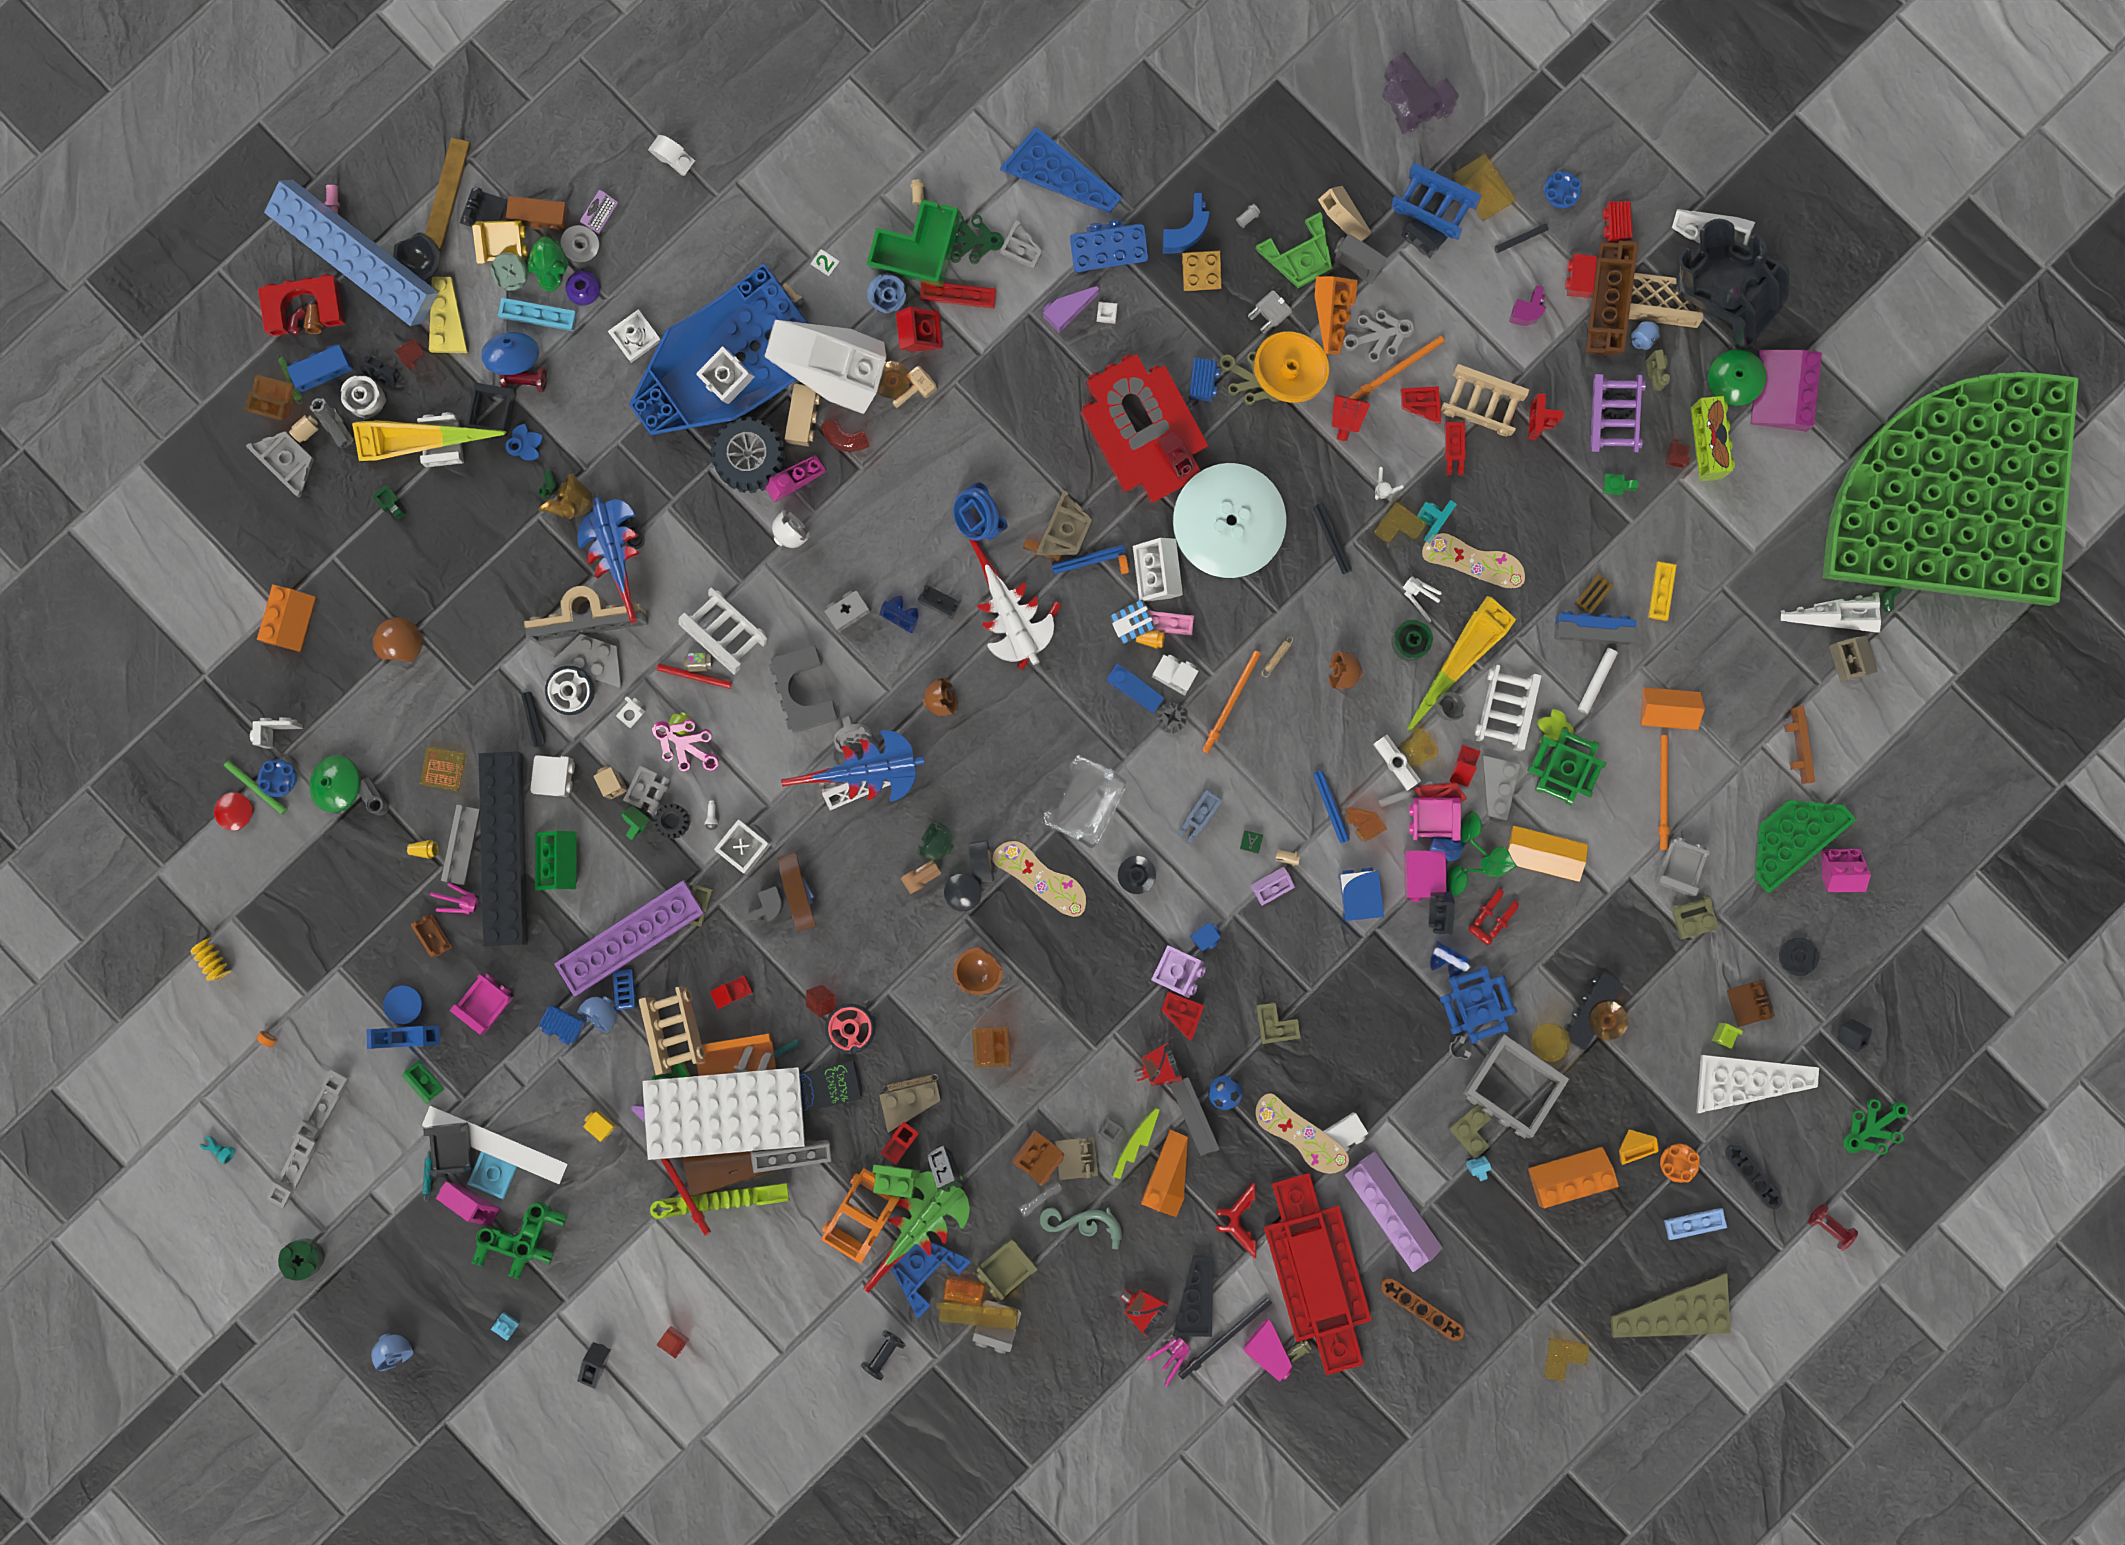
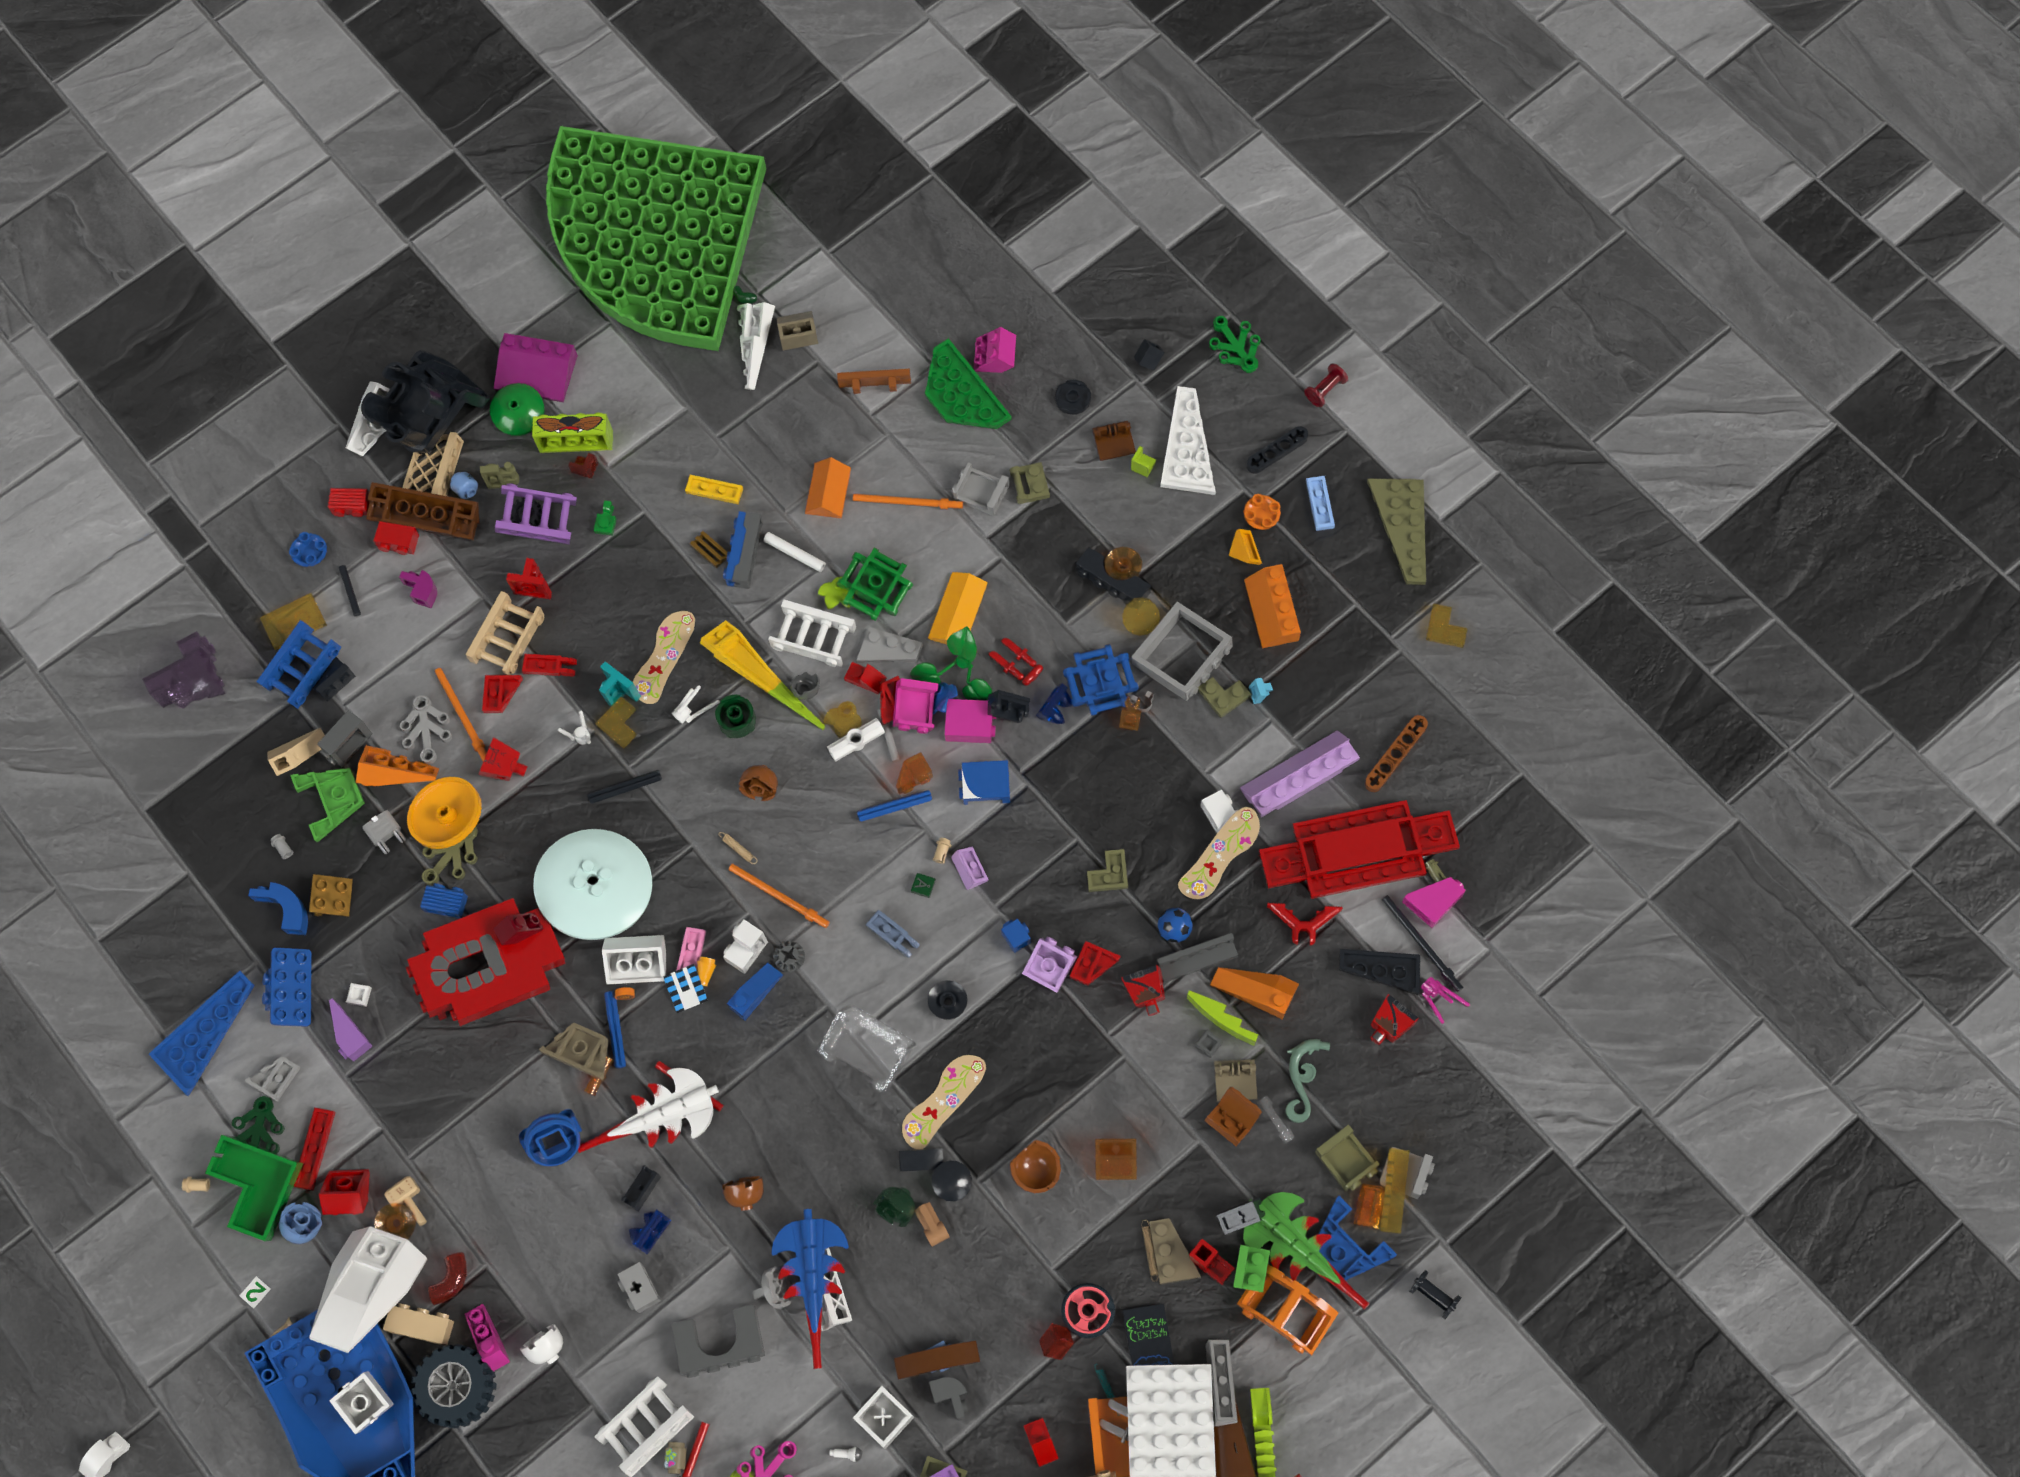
camera: 80 degrees left, 15 degrees down
(1442, 1037) = (1130, 716): none -> clear orange plate

